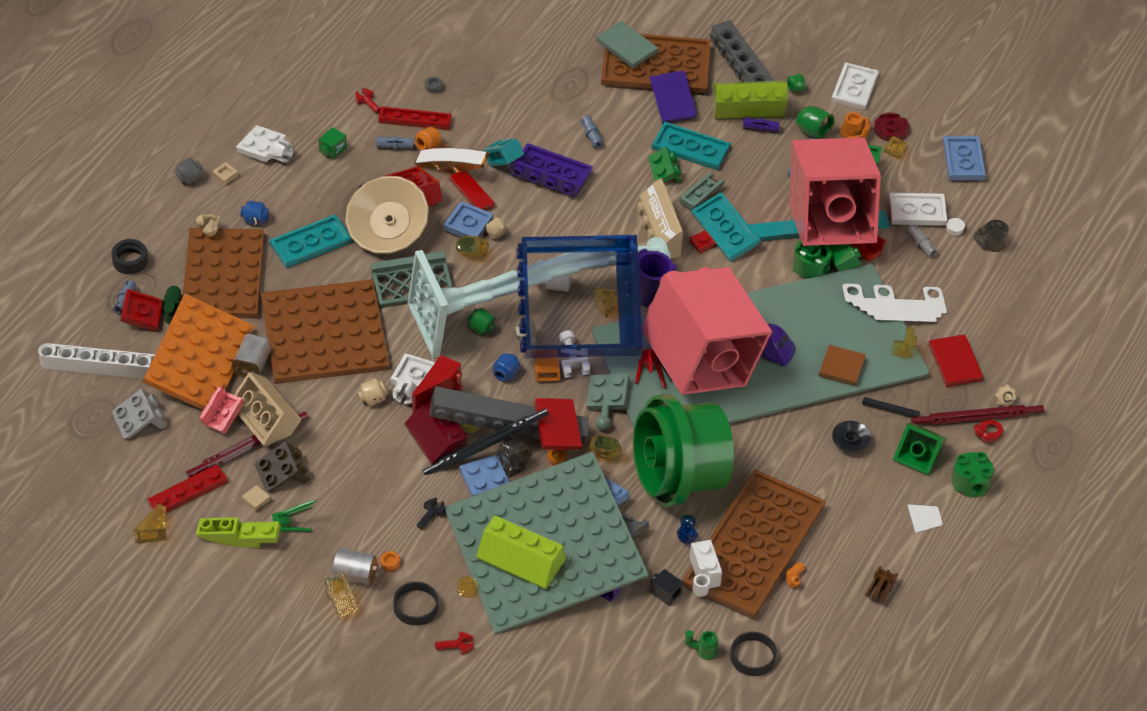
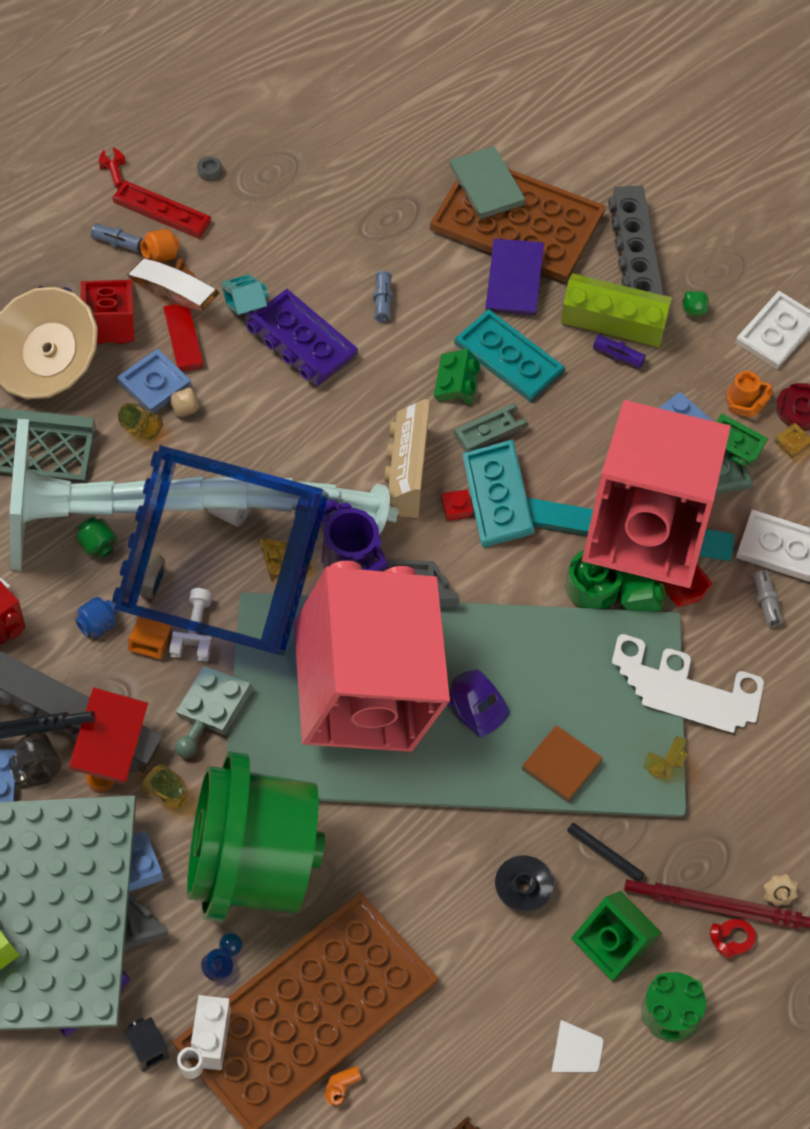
camera: 20 degrees right, 10 degrees up
(332, 143) = (33, 216): green brick -> none
(649, 360) = (287, 672): red plant -> none
(810, 120) = (687, 364): green piece -> none
(955, 360) = (734, 805): red tile -> none

